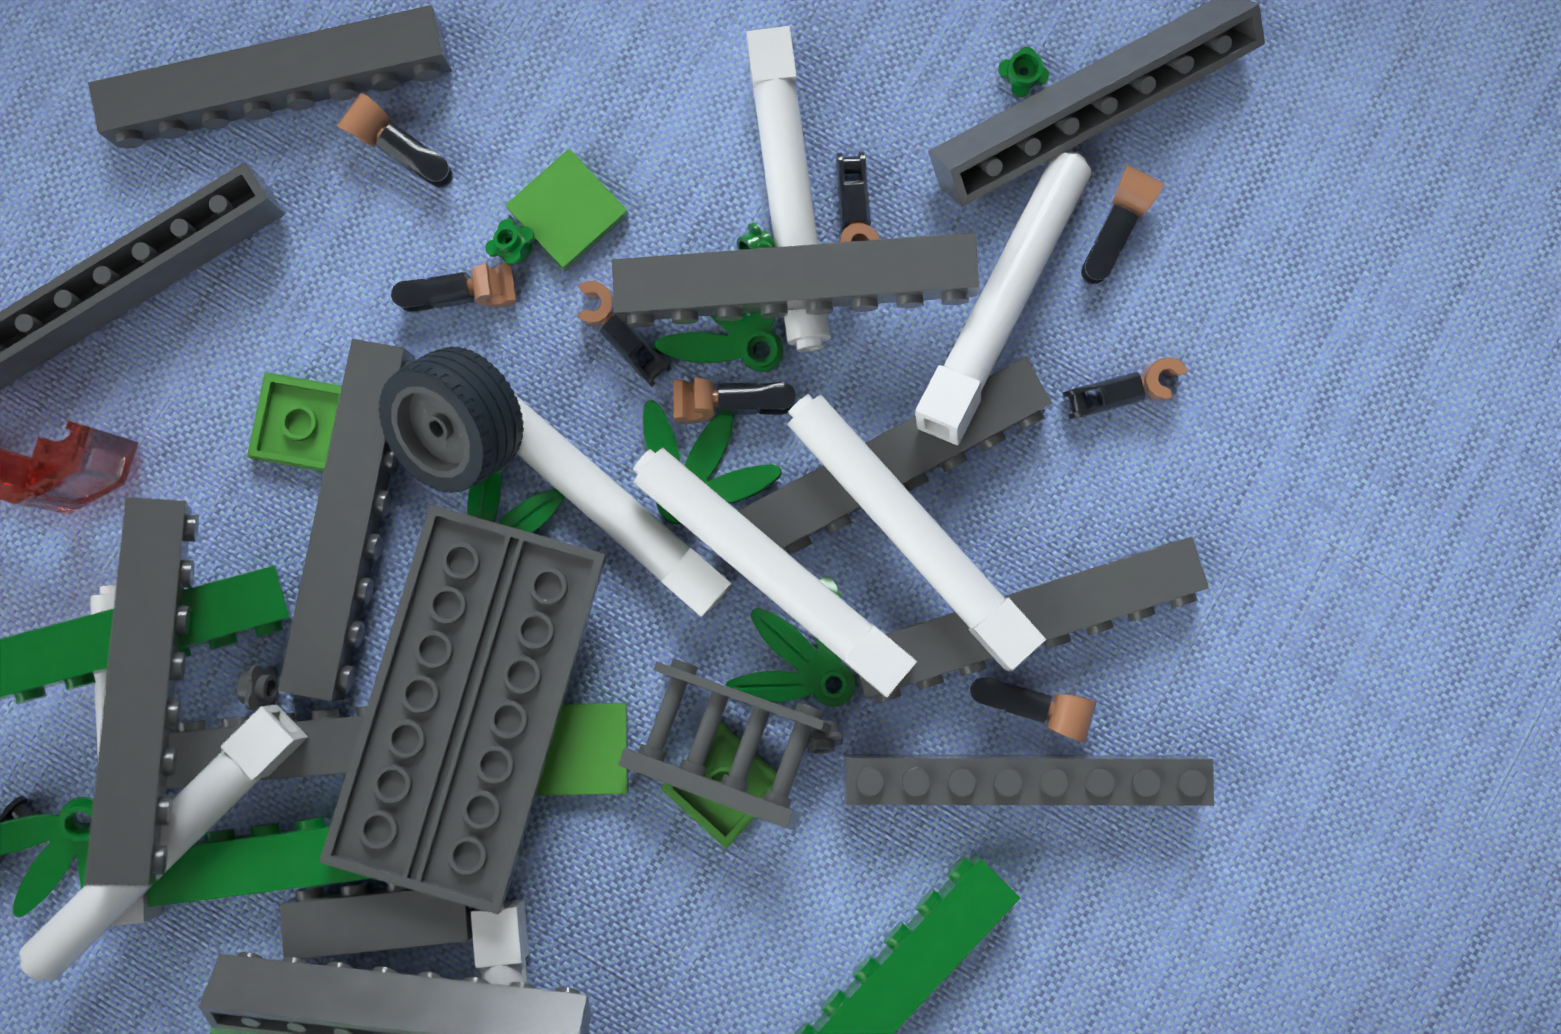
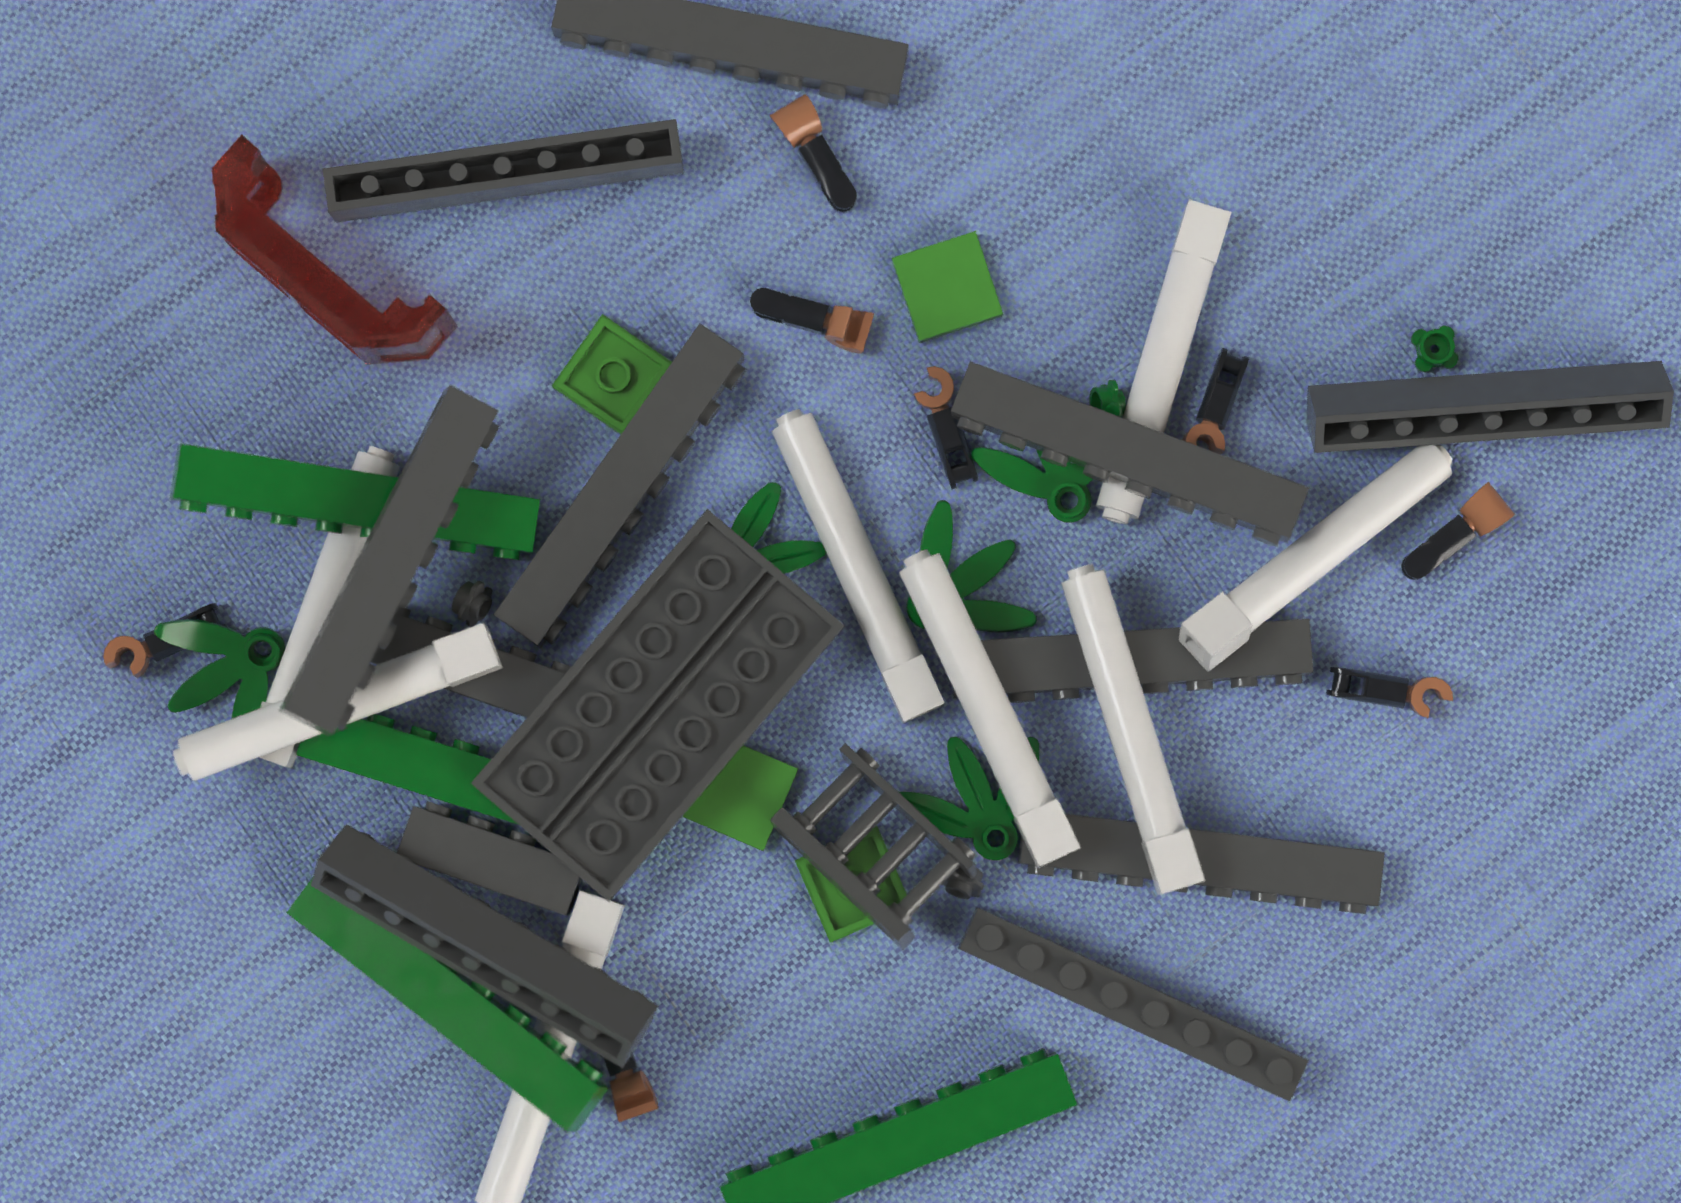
camera: 25 degrees right, 0 degrees up
(451, 419) = (760, 440): black wheel -> none
(517, 249) = (884, 306): green plate -> none
(697, 400) = (989, 520): piece -> none
(1065, 715) = (1195, 963): piece -> none

